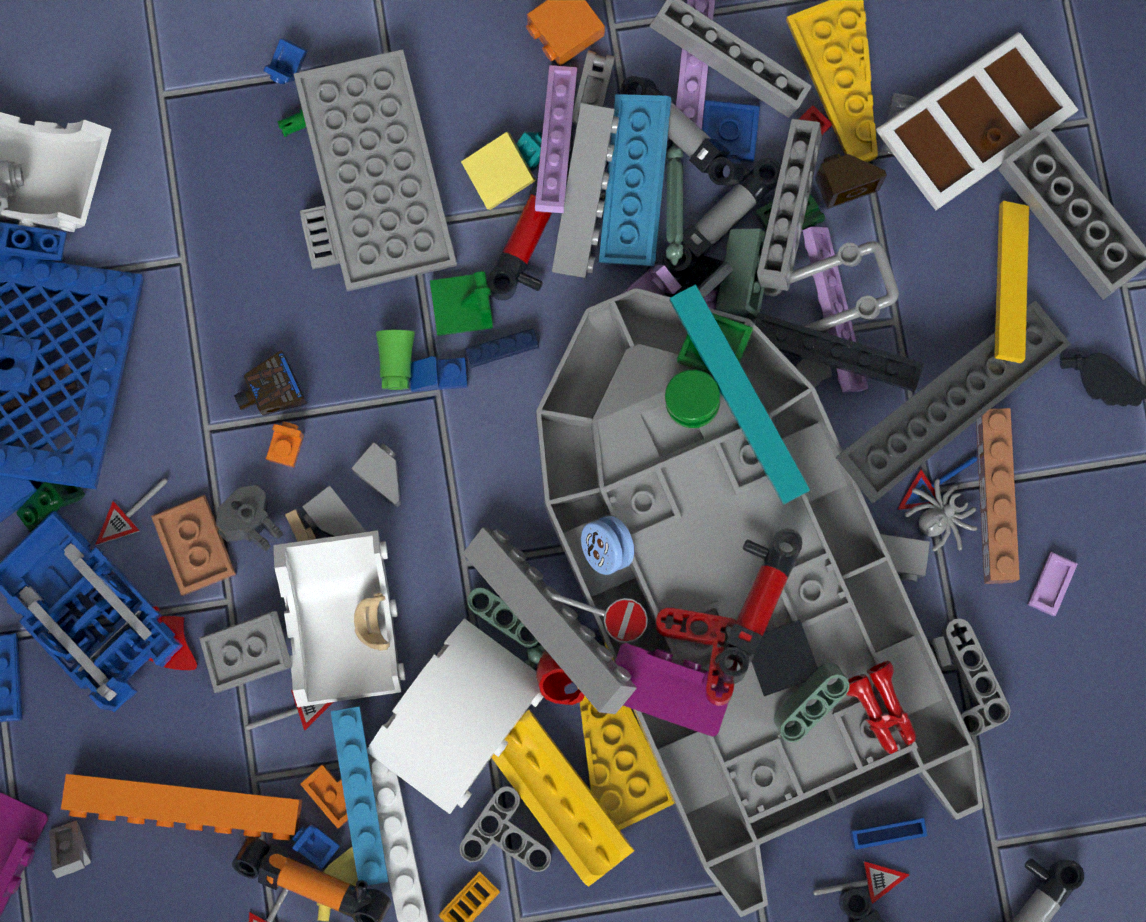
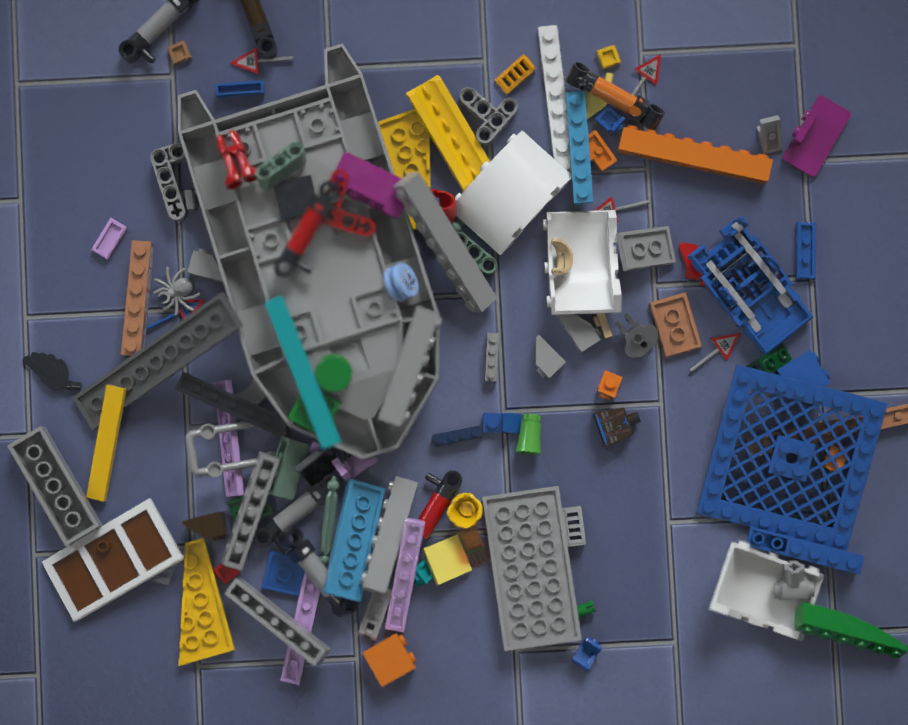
camera: 175 degrees left, 5 degrees up
(461, 304) = (481, 469): green plate -> none
(462, 467) = (492, 357): none -> light grey piece
(463, 196) = (473, 546): none -> clear orange slope
(478, 238) = (465, 510): none -> yellow hair
(581, 421) = (408, 366): none -> light grey brick
(623, 620) = (396, 234): piece -> none
(989, 881) = (179, 52): none -> medium nougat tile

